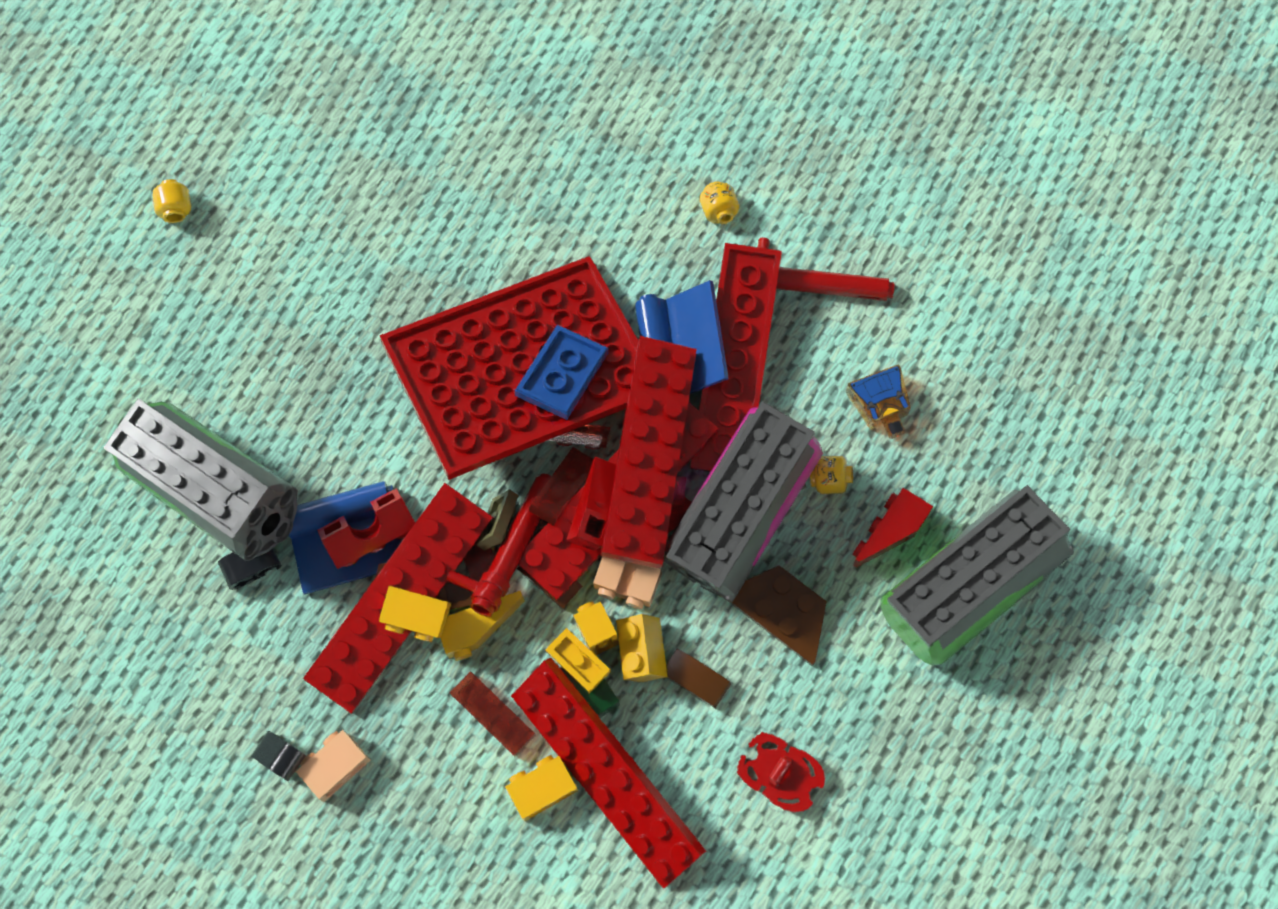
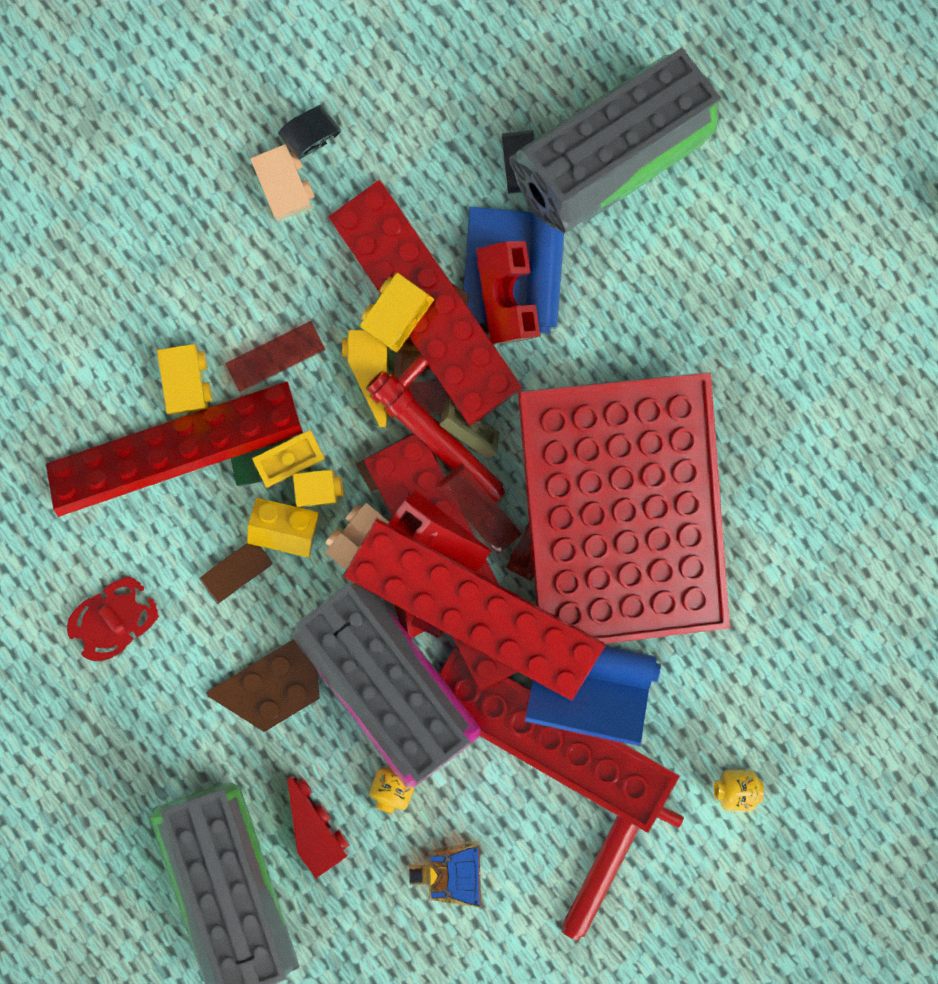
camera: 105 degrees right, 15 degrees up
(561, 372) = (596, 549): blue tile -> none

